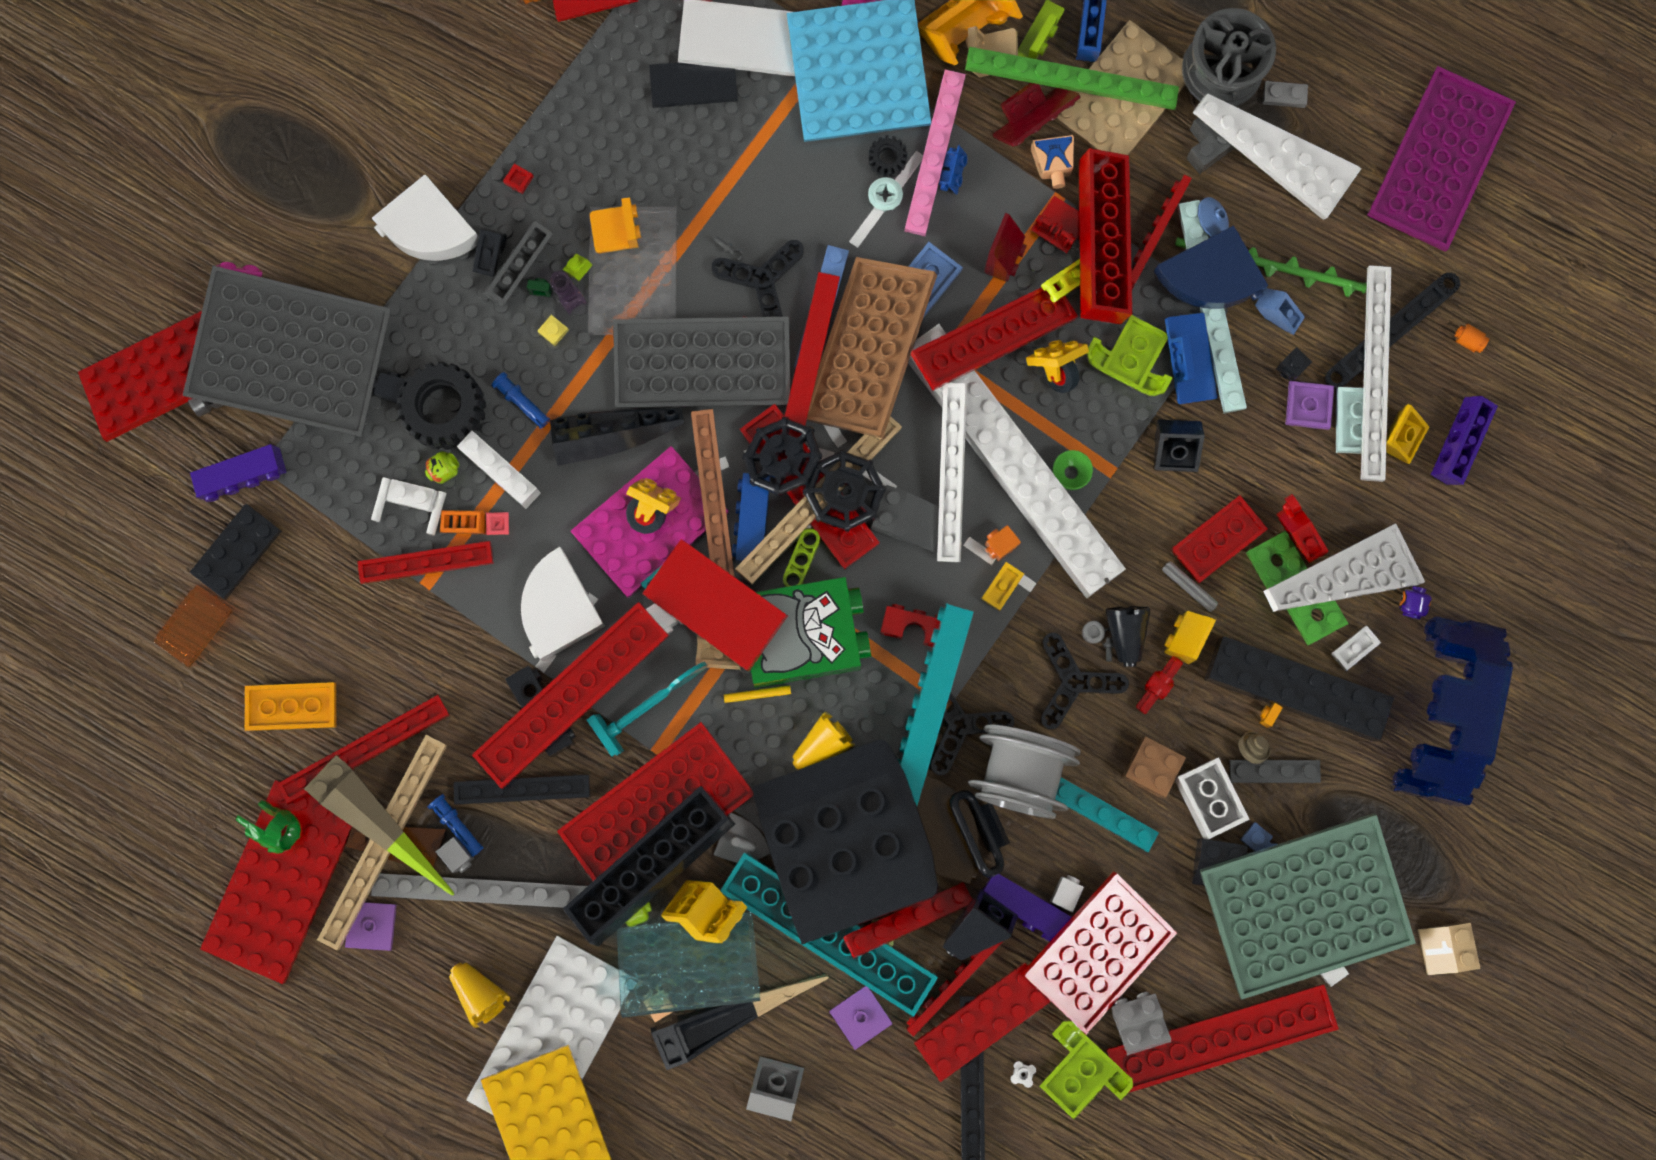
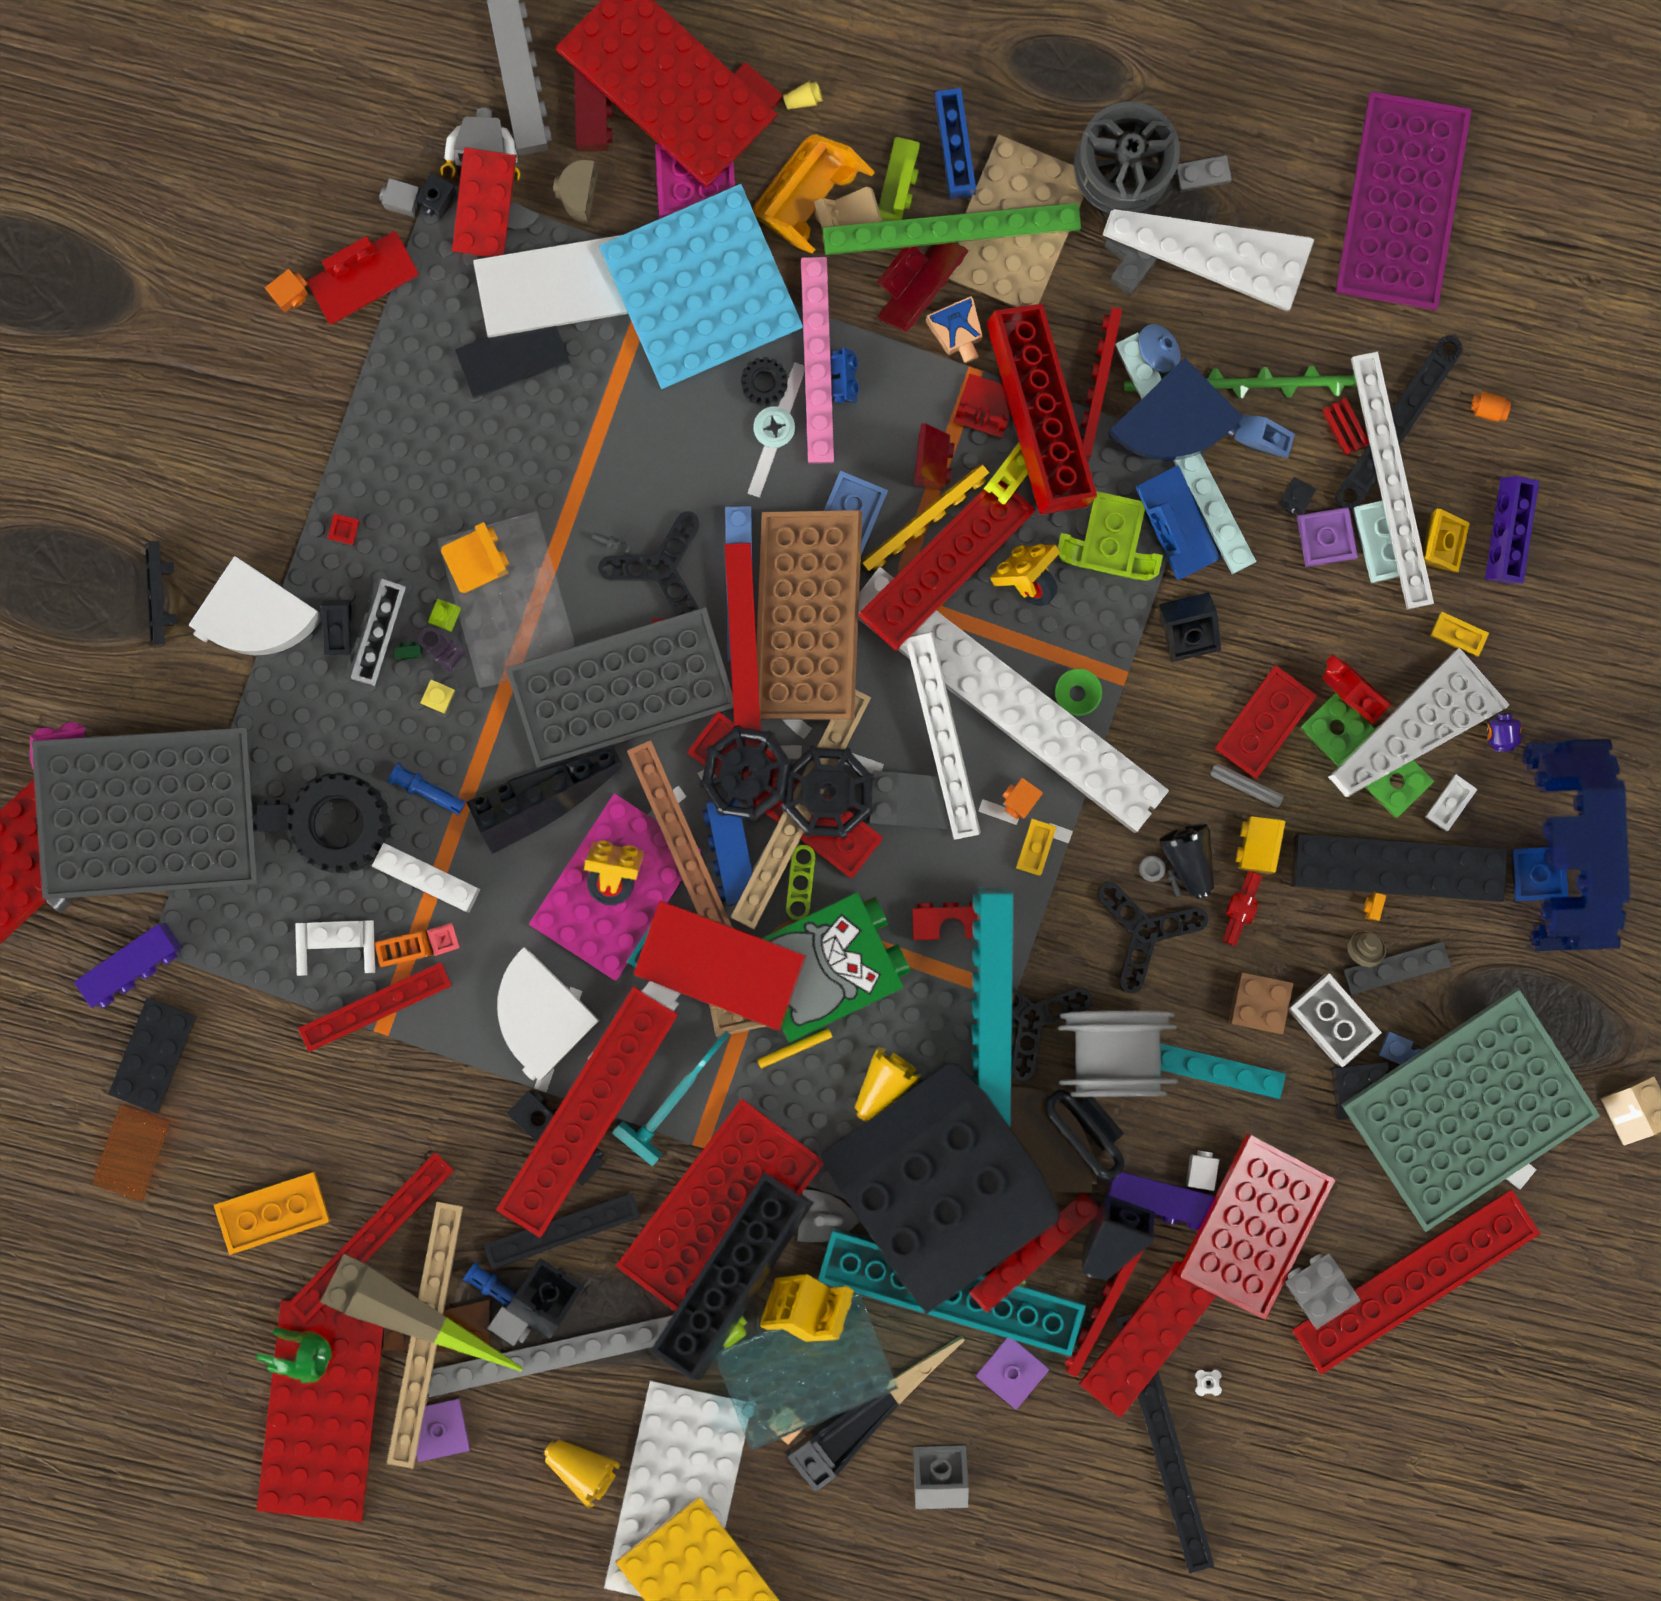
camera: 20 degrees left, 5 degrees up
(360, 170) = (154, 570): none -> black hinge
(442, 467) = (360, 893): lime head -> none
(490, 839) = (545, 1298): none -> black brick
(996, 295) = (934, 512): none -> yellow plate
(1083, 1072) = (1273, 1362): lime piece -> none
(1356, 322) = (1336, 431): none -> red tile
(1398, 513) = (1459, 634): none -> yellow plate
(1411, 726) = (1532, 877): none -> blue plate

